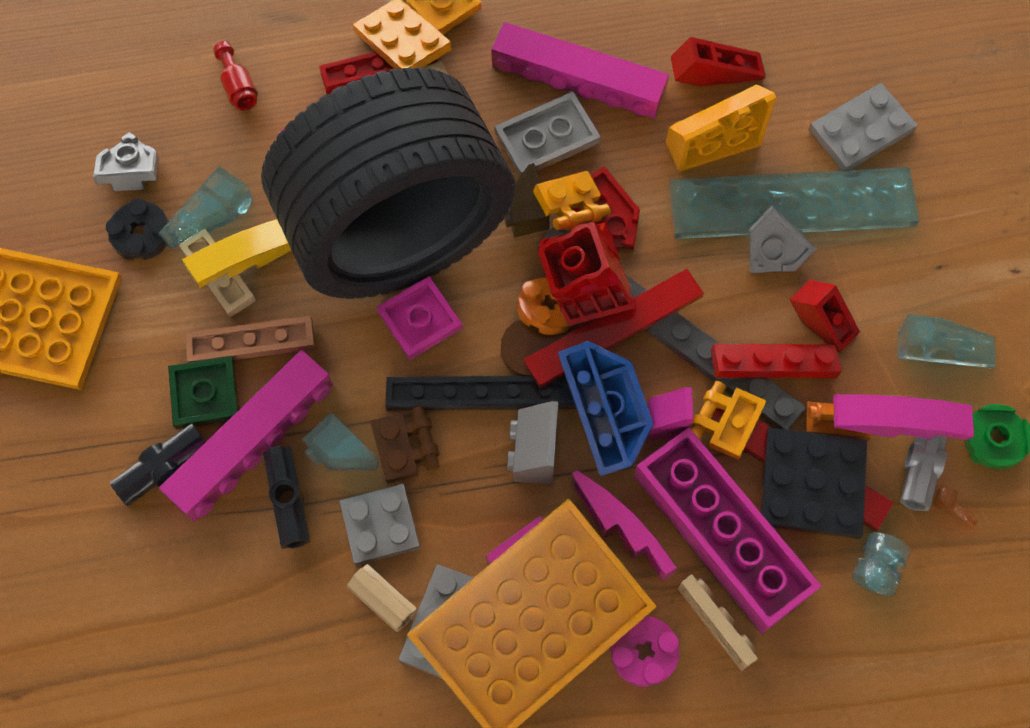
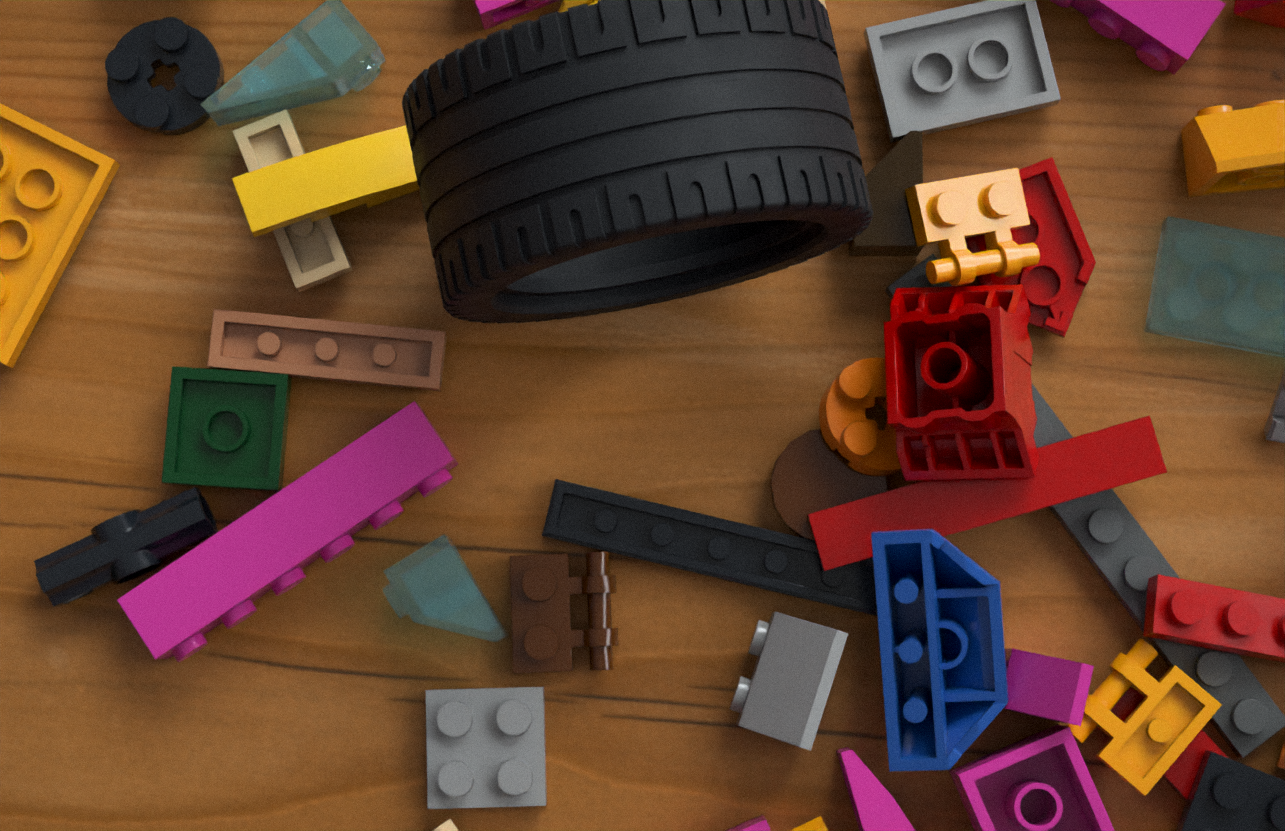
camera: 15 degrees right, 15 degrees up
(291, 515) = (333, 703): black piece -> none
(419, 318) = (639, 380): dark pink plate -> none

